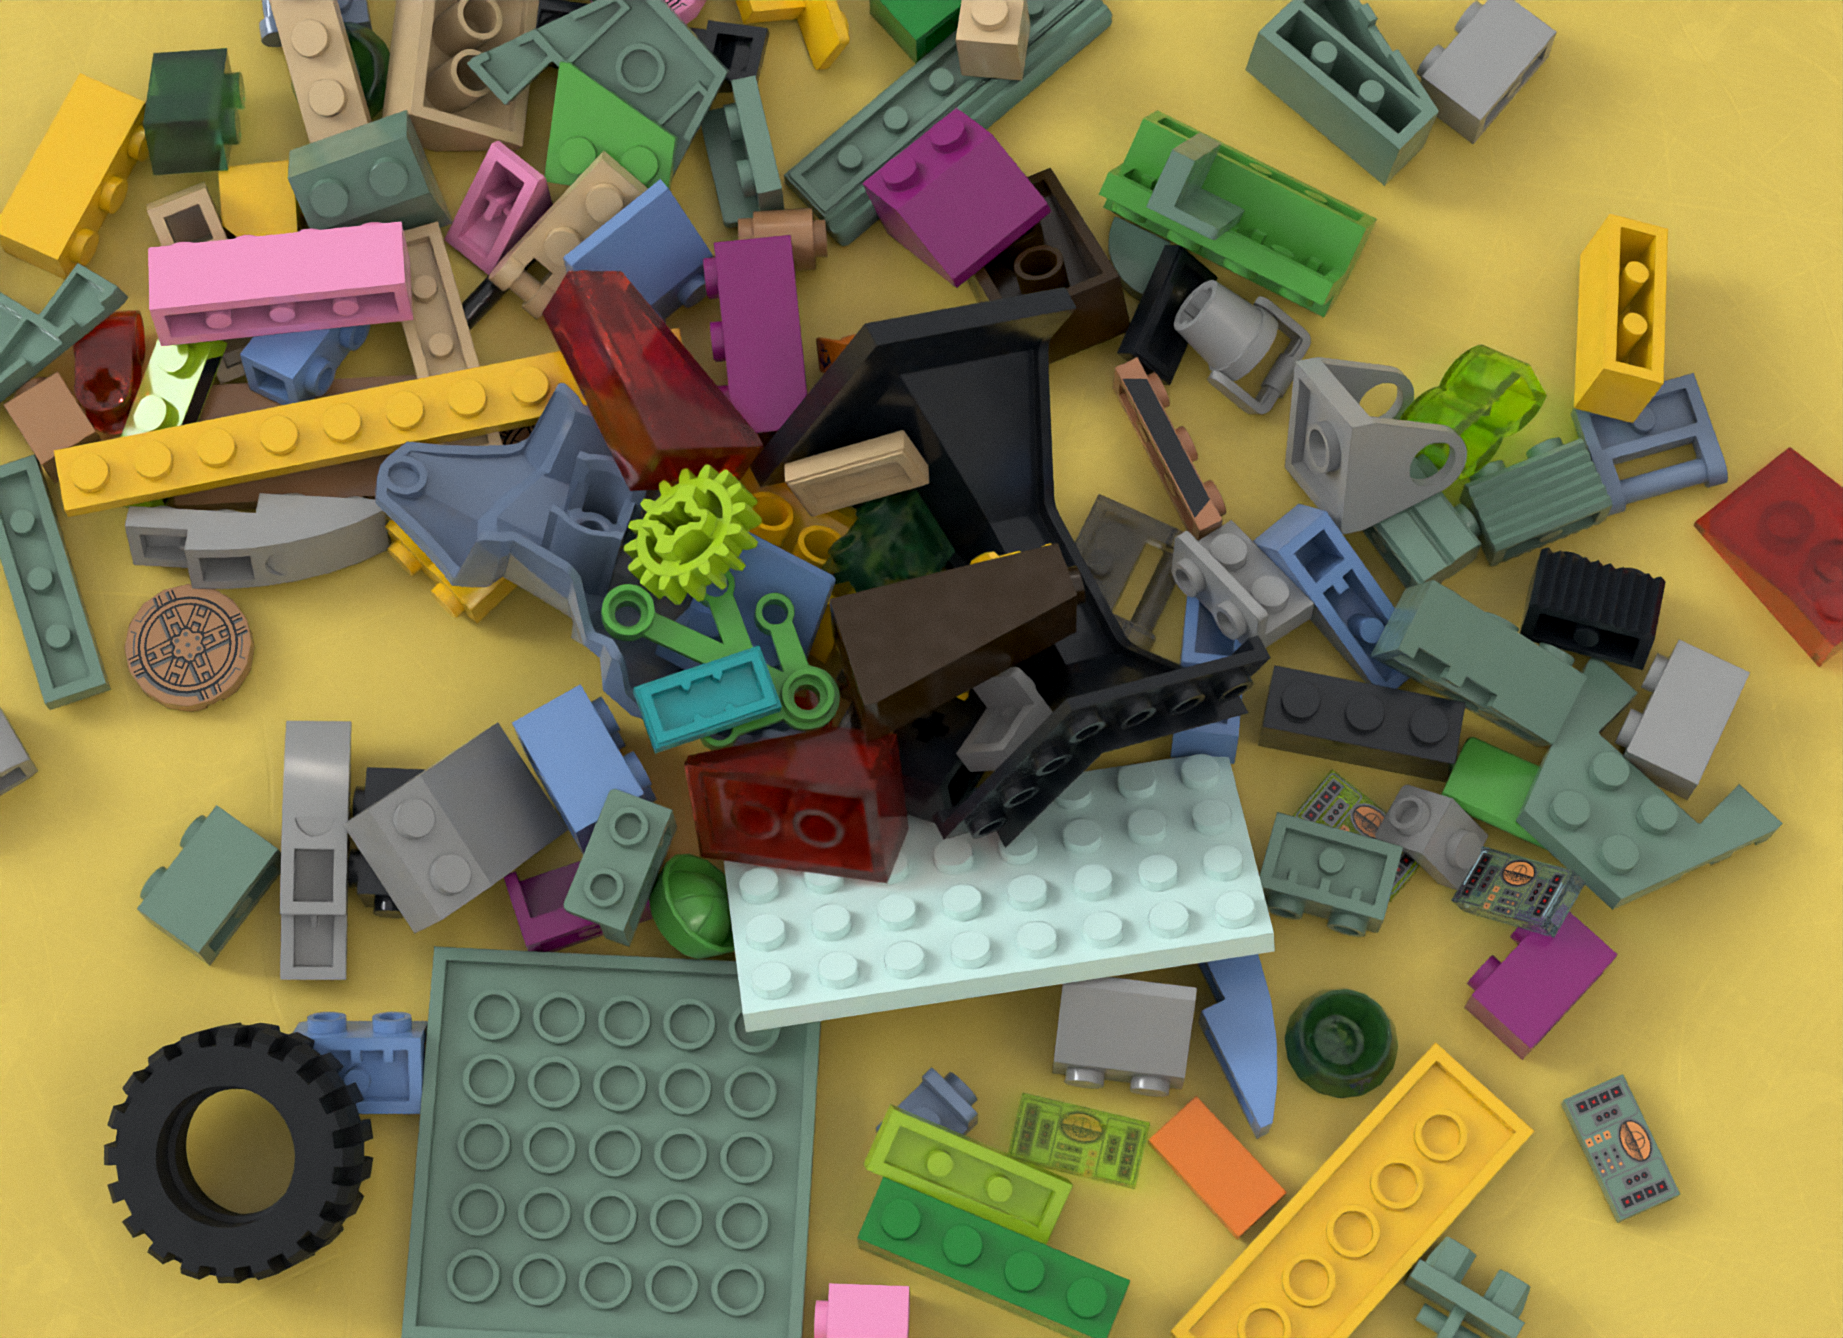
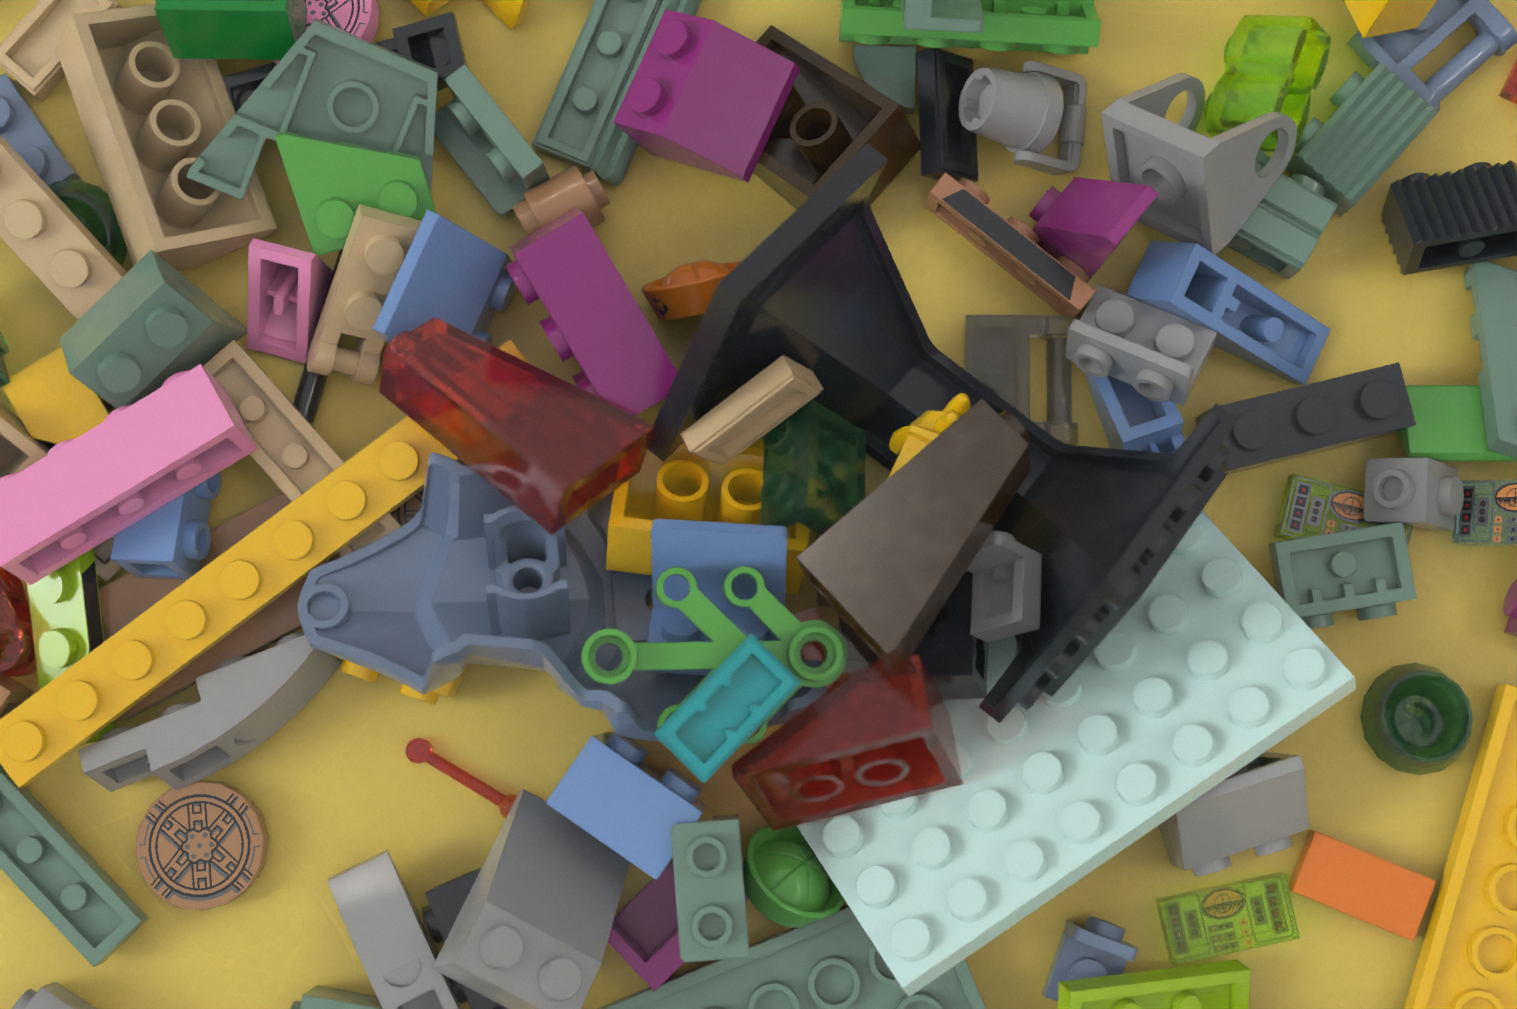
camera: 25 degrees left, 10 degrees up
(422, 658) = (421, 751): none -> clear red hinge
(692, 534) = (636, 554): lime gear -> none
(1243, 1035) = (1347, 772): medium blue slope -> none
(1245, 460) = (1089, 219): none -> magenta slope
(1480, 662) = (1388, 315): sand green wedge -> none

